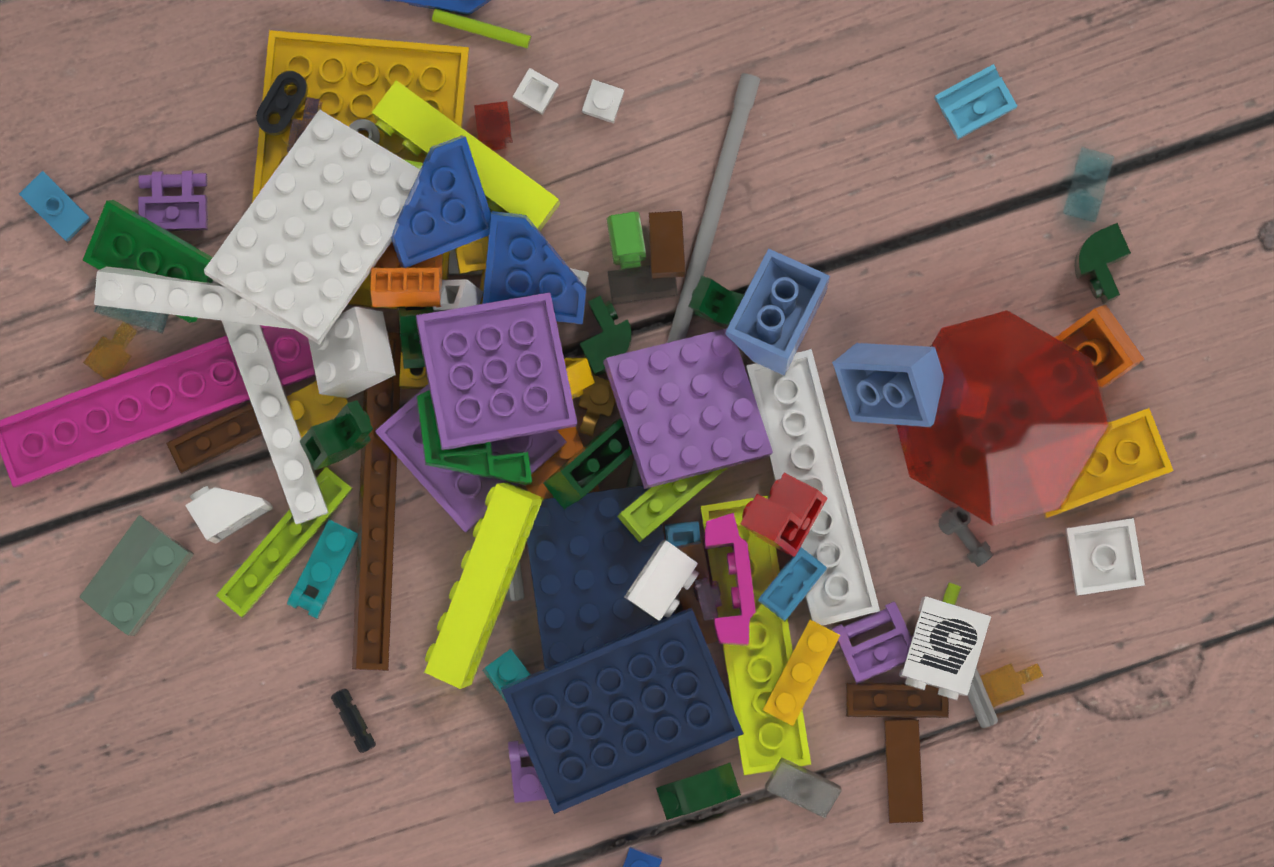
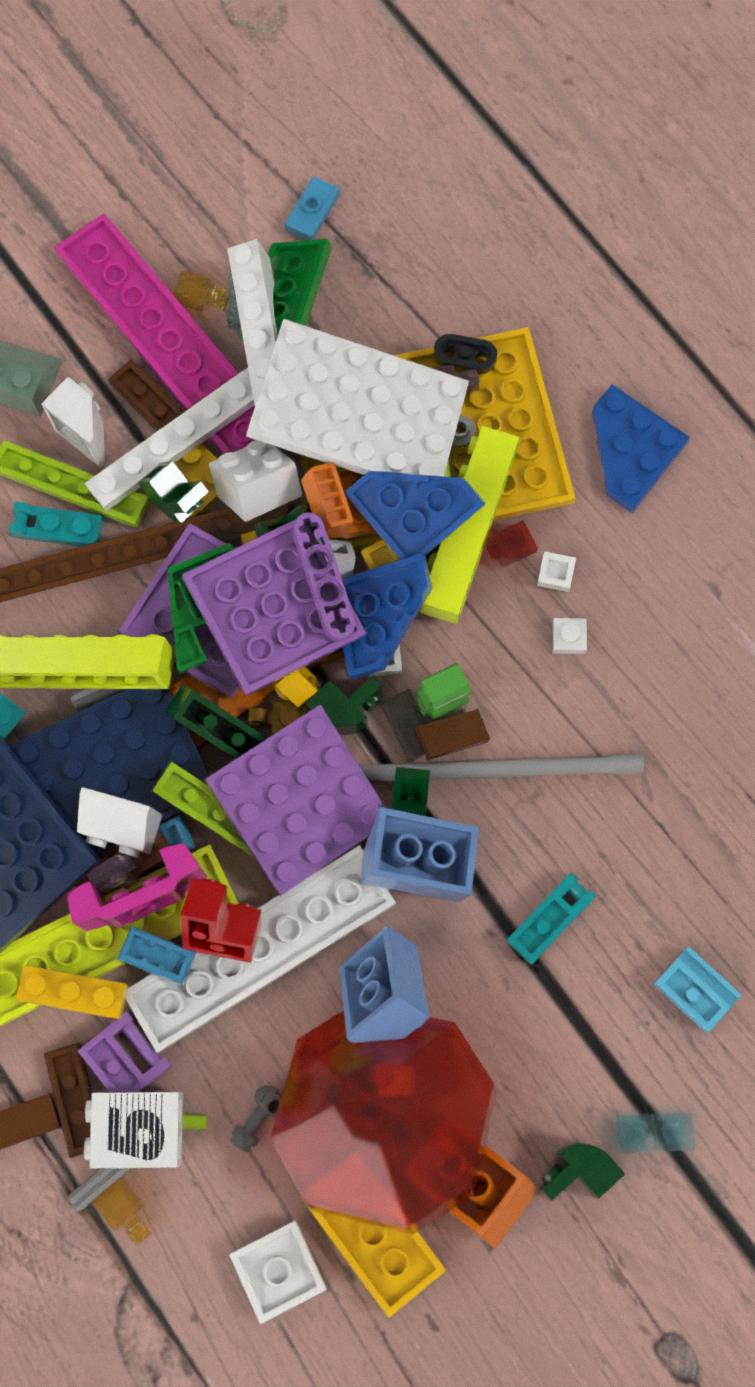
camera: 70 degrees right, 10 degrees down
(174, 212) = (338, 302): medium lavender plate -> none
(481, 28) = (598, 508): lime bar -> none
(485, 308) = (322, 577): none -> medium lavender beam
(870, 212) = (550, 919): none -> teal plate

